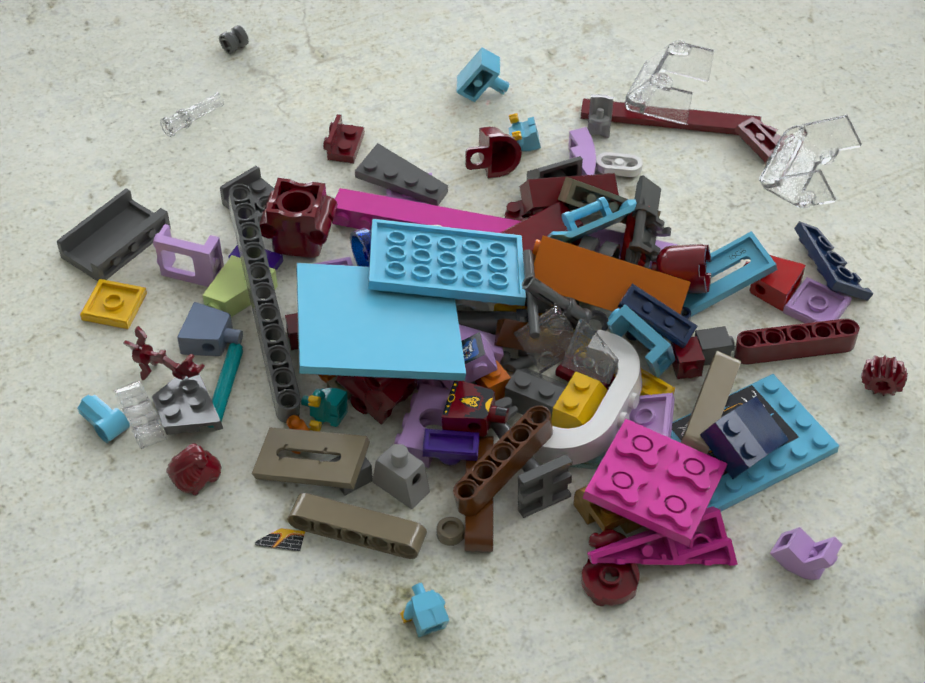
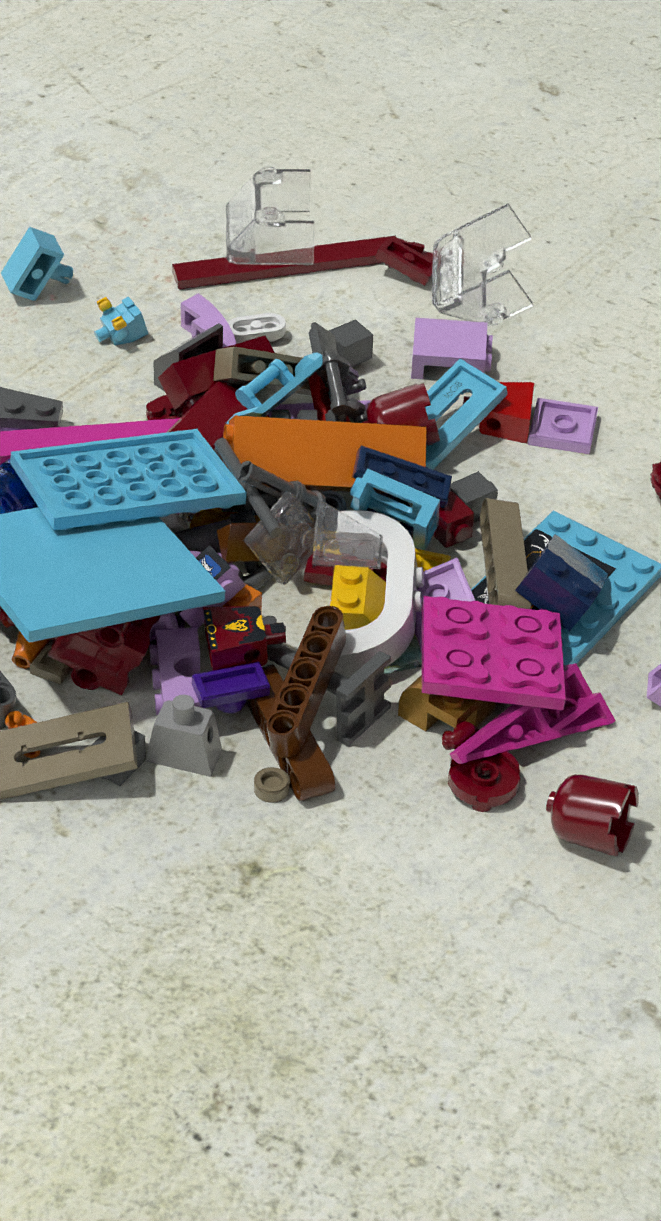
camera: 25 degrees left, 5 degrees down
(283, 539) = (71, 856): sticker -> none
(326, 406) = (47, 690): teal piece -> none
(357, 526) = (158, 811): dark tan beam -> none
(426, 611) = (295, 875): medium azure piece -> none
(497, 152) = (101, 349): dark red container -> none
(533, 389) = (293, 604): dark grey slope -> none
(600, 115) = (208, 274): light grey hips -> none
(675, 640) = (593, 813): none -> dark red cylinder
(679, 196) = (354, 342): none -> dark grey brick
(758, 214) = (446, 341): none -> lavender panel
(796, 341) = (563, 467): dark red beam -> none
(830, 263) = (557, 377): dark blue wing -> none

